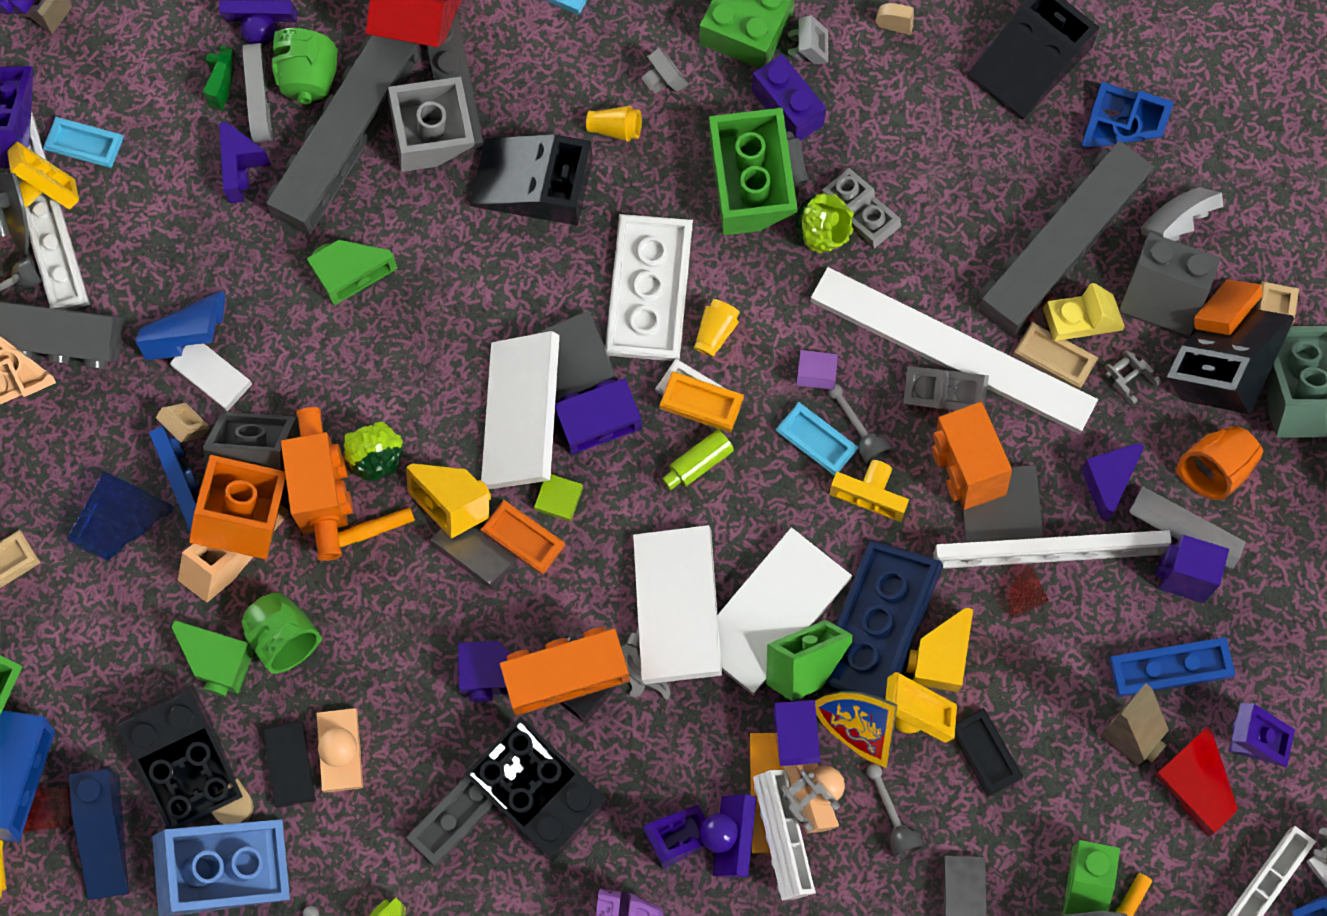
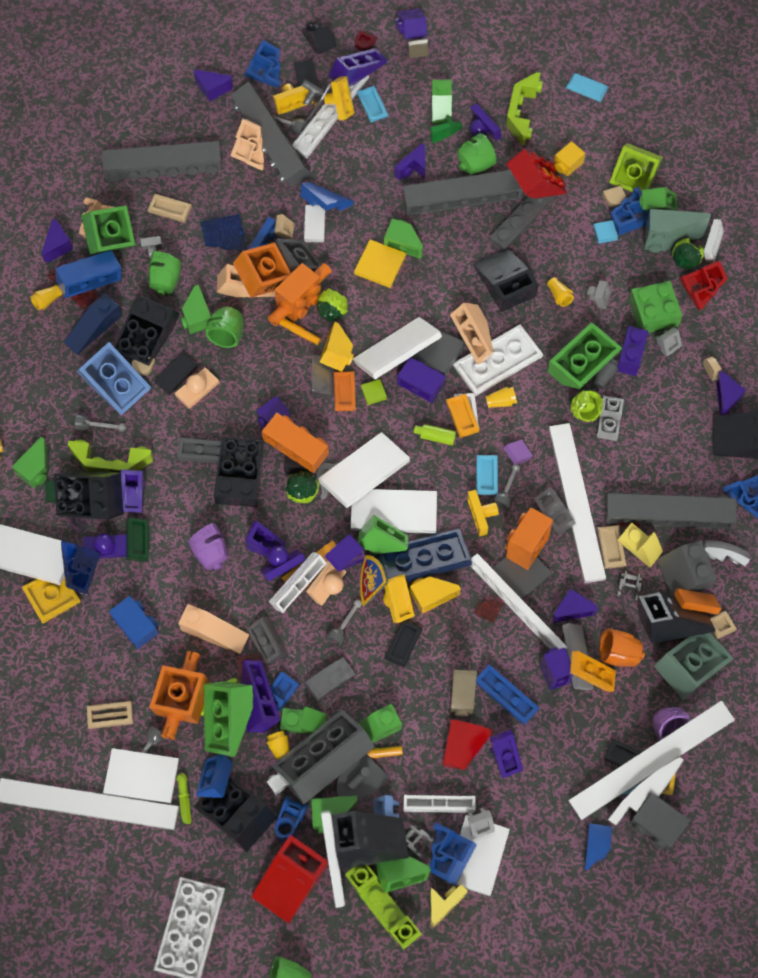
camera: 50 degrees right, 5 degrees down
(40, 641) = (151, 244): none -> light grey tile
(107, 658) = (163, 278): none -> bright green helmet
(169, 44) = (441, 101): none -> slope
(256, 85) = (452, 146): light grey beam -> none
(358, 331) = (380, 263): none -> yellow tile
(429, 122) = (492, 219): light grey slope -> none
(587, 284) = (474, 330): none -> light nougat slope
(633, 714) = (302, 487): none -> dark green piece
(798, 806) = (312, 577): light grey piece -> none
(951, 29) = (728, 393): none -> dark purple slope
(1235, 523) = (593, 671): none -> light orange tile

